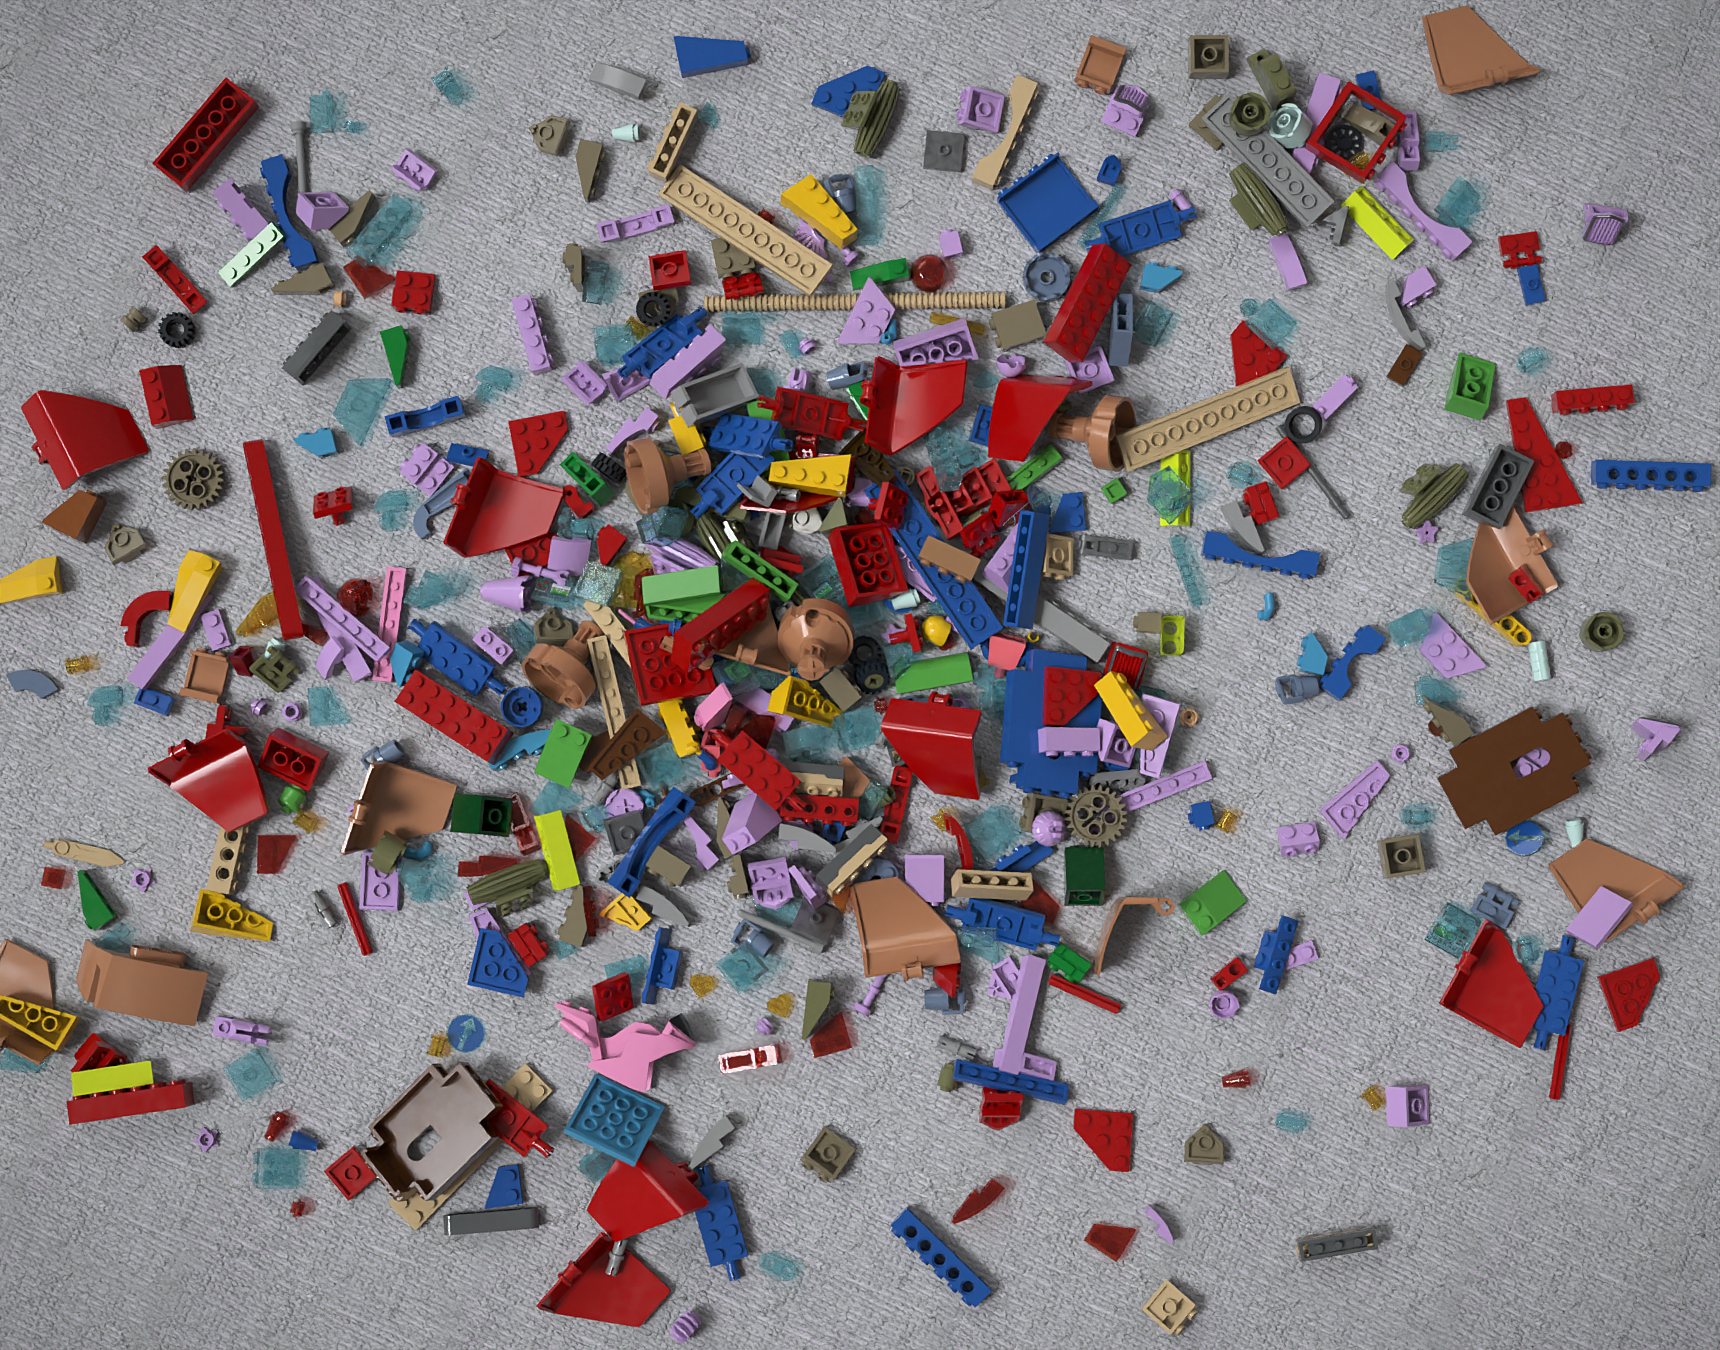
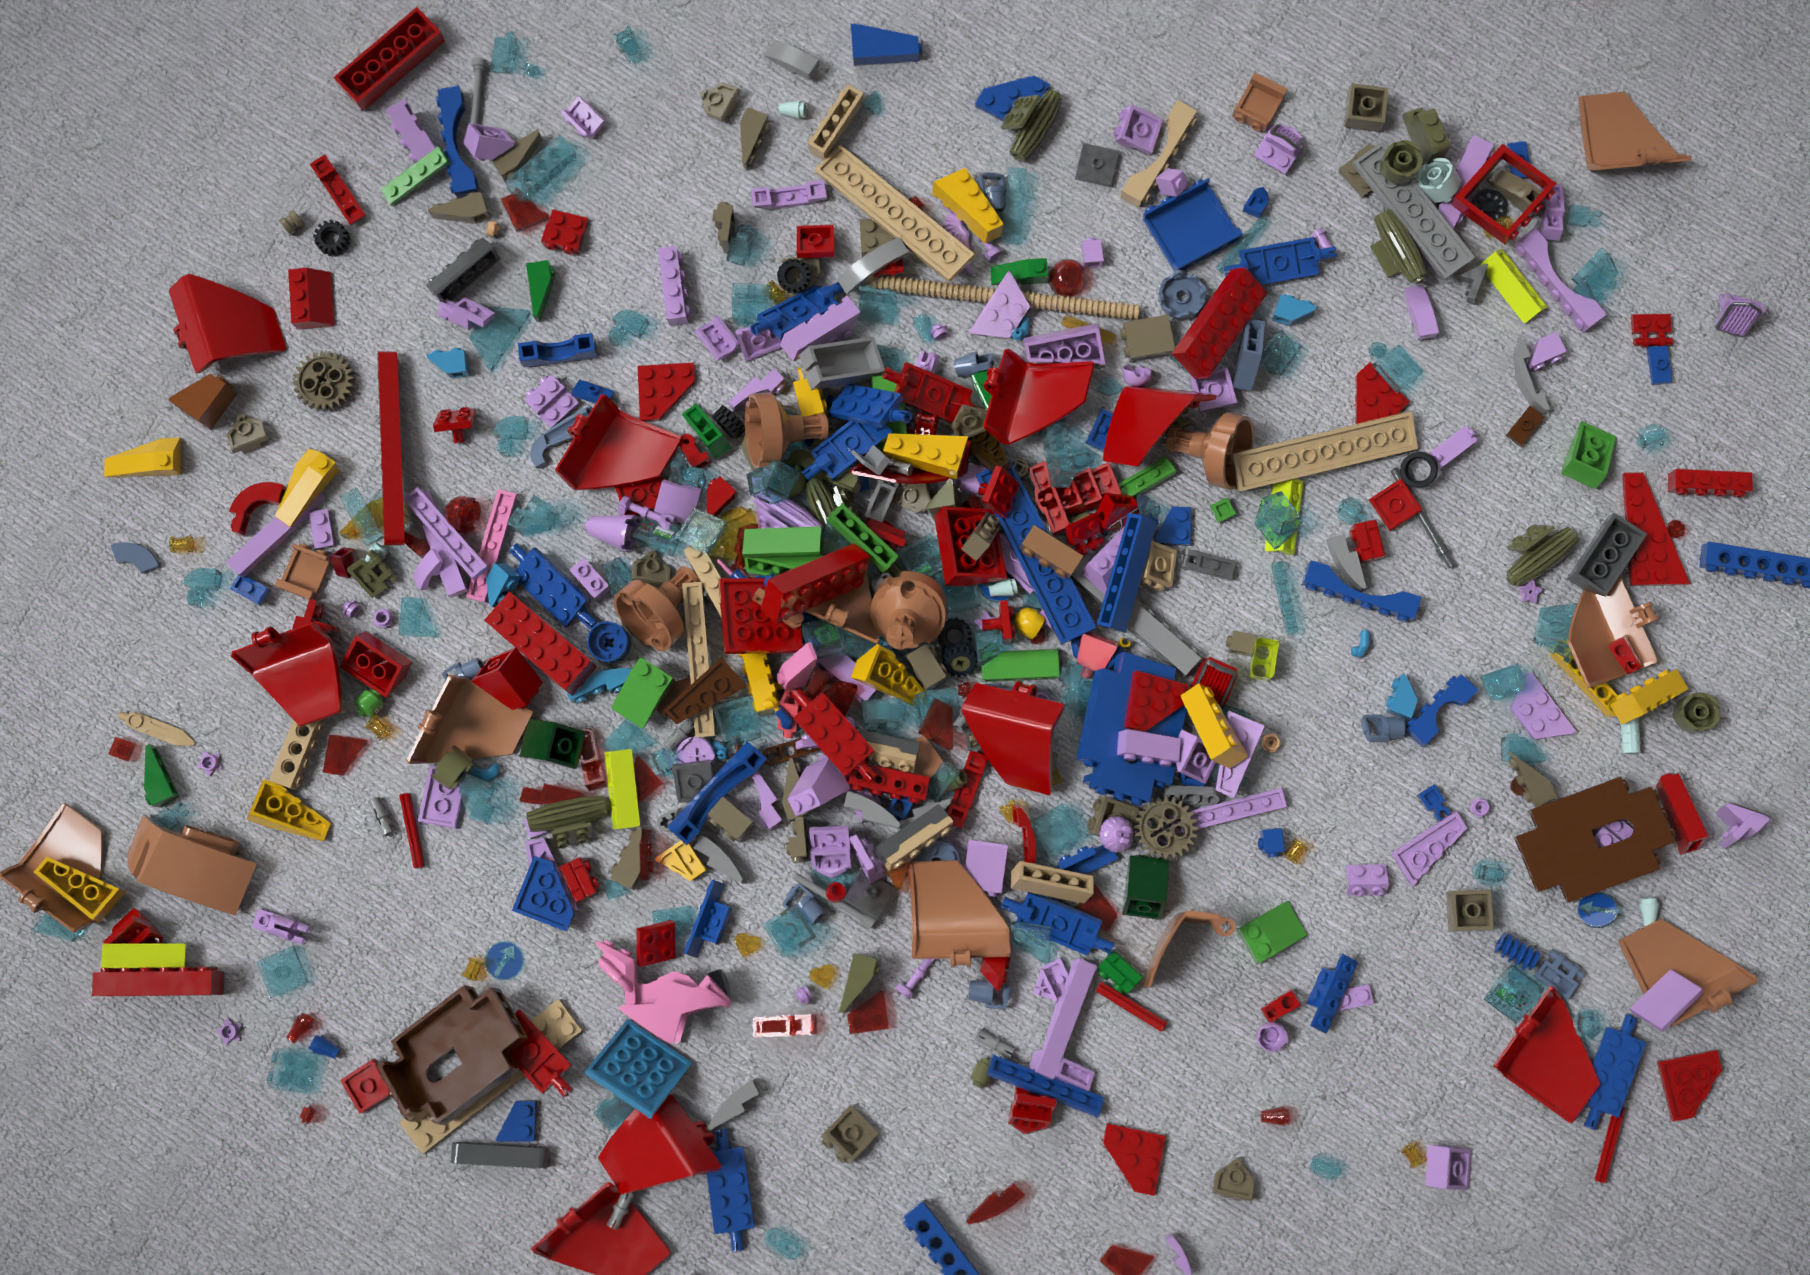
camera: 10 degrees right, 5 degrees down
(255, 614) = (361, 517): none -> clear light blue plate
(326, 391) = (465, 313): none -> lavender plate
(428, 757) = (509, 679): none -> red slope
(730, 288) = (871, 264): none -> light grey slope
(782, 923) = (836, 892): none -> red tile
(849, 436) = (969, 421): none -> dark tan plate
(860, 744) = (938, 724): none -> clear red wing
(878, 552) = (982, 536): none -> dark tan slope
(1021, 161) = (1172, 182): none -> lavender brick
(1353, 752) = (1432, 799): none -> blue plate
(1451, 889) = (1517, 951): none -> blue piece
(1553, 622) = (1649, 696): none -> yellow wedge
(1596, 733) = (1681, 813): none -> red slope

